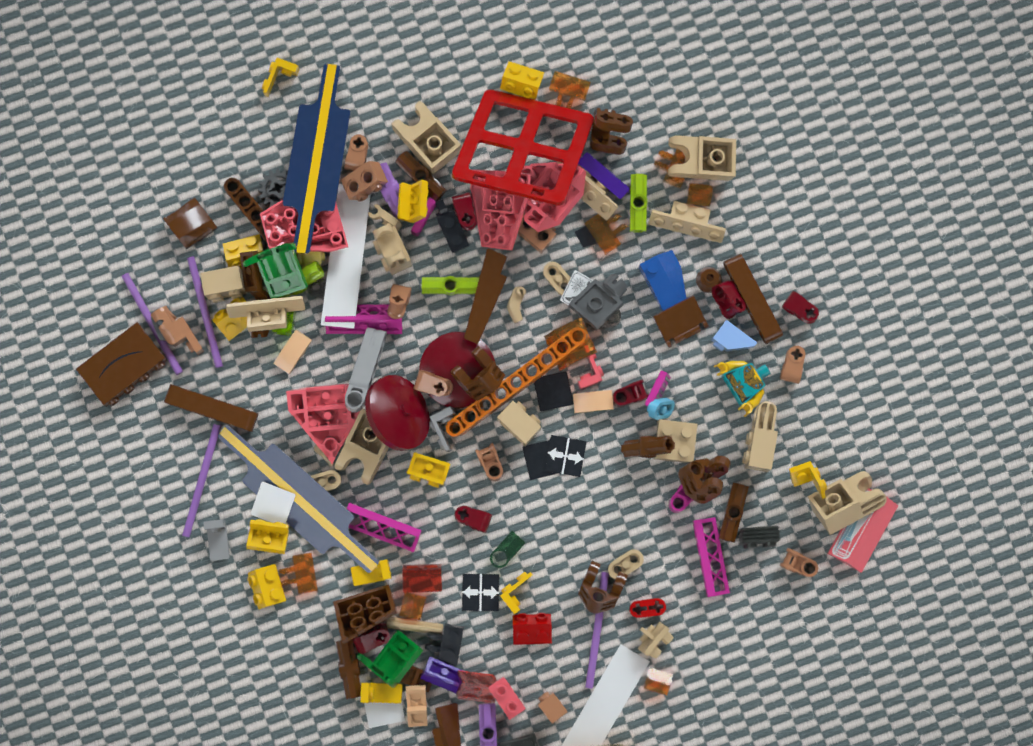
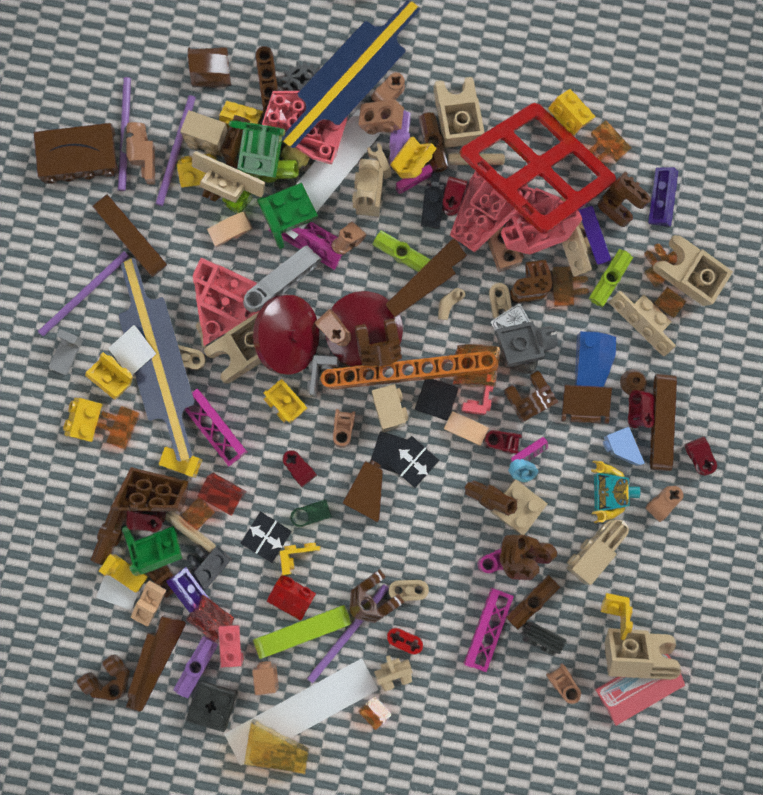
camera: 30 degrees right, 0 degrees up
(333, 308) = (287, 211): none -> green piece
(476, 162) = (491, 159): none -> tan axle
(542, 504) = (366, 491): none -> reddish brown slope
(558, 651) = (302, 631): none -> lime beam
(575, 237) = (535, 285): none -> reddish brown piece
(637, 347) = (534, 403): none -> reddish brown piece
(641, 107) = (663, 196): none -> dark purple slope

